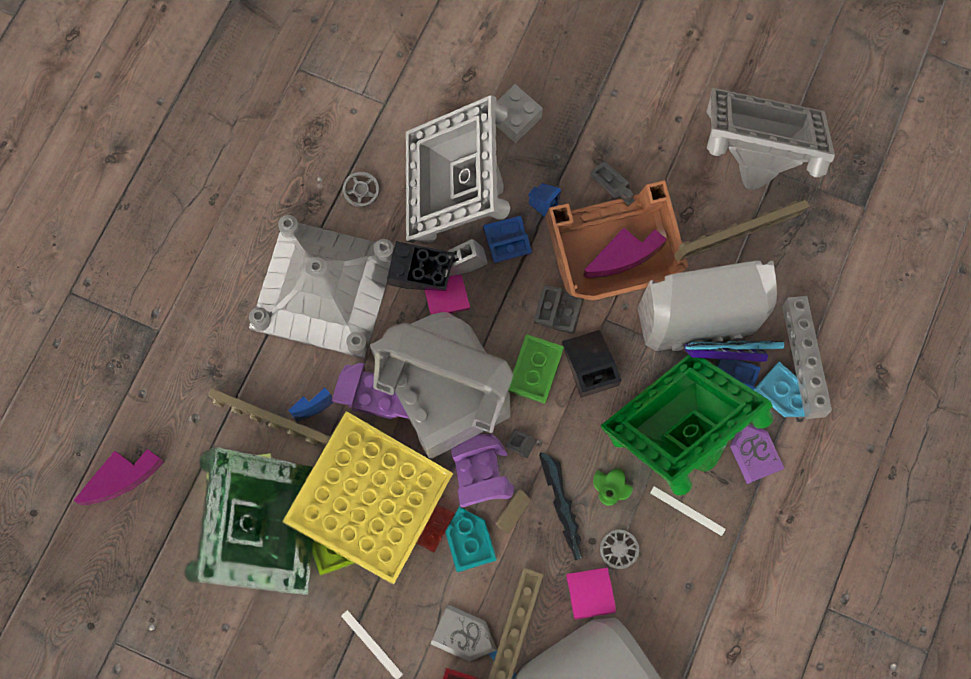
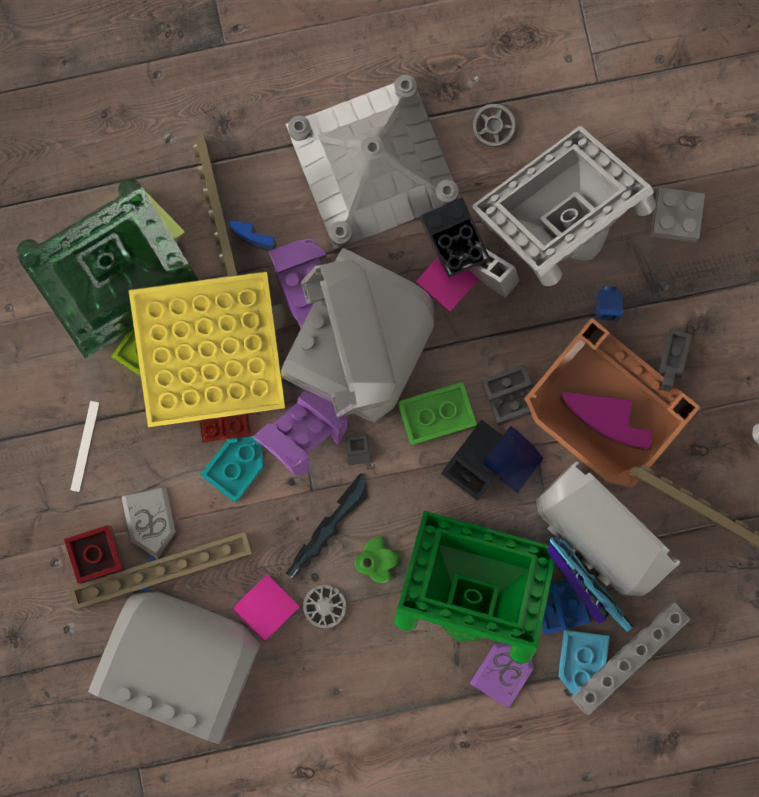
camera: 60 degrees right, 10 degrees up
(118, 477) = (69, 114): magenta slope -> none
(507, 239) = (543, 302): blue slope -> none
(513, 511) = (289, 487): dark tan slope -> none
(607, 337) = (514, 459): none -> clear blue slope
(688, 511) = (406, 659): white sticker -> none

